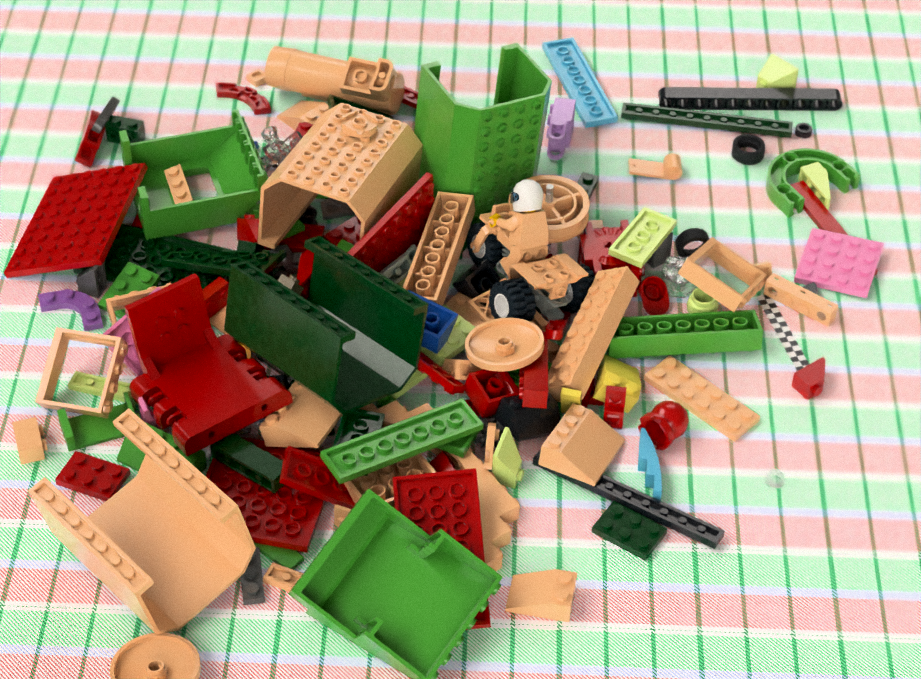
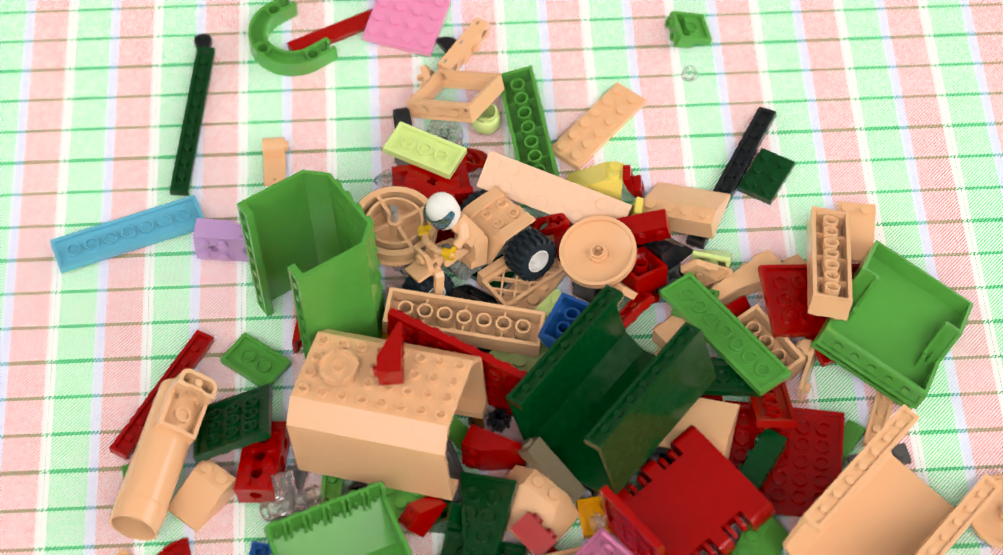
camera: 95 degrees left, 10 degrees up
(357, 147) = (390, 359): none -> red slope
(469, 521) = (829, 263): none -> light nougat brick
(649, 463) = (685, 161): medium azure slope -> none
(665, 423) = (647, 144): red tile -> none
(750, 98) = (157, 84): black beam -> none
(751, 141) = (241, 95): black tyre -> none
(777, 74) = (128, 55): yellowish green slope -> none
(783, 331) = (514, 62): sticker -> none
(810, 379) = (566, 43): slope -> none
(817, 179) = (293, 28): yellowish green slope -> none
(837, 481) = (687, 29): none -> bright green plate

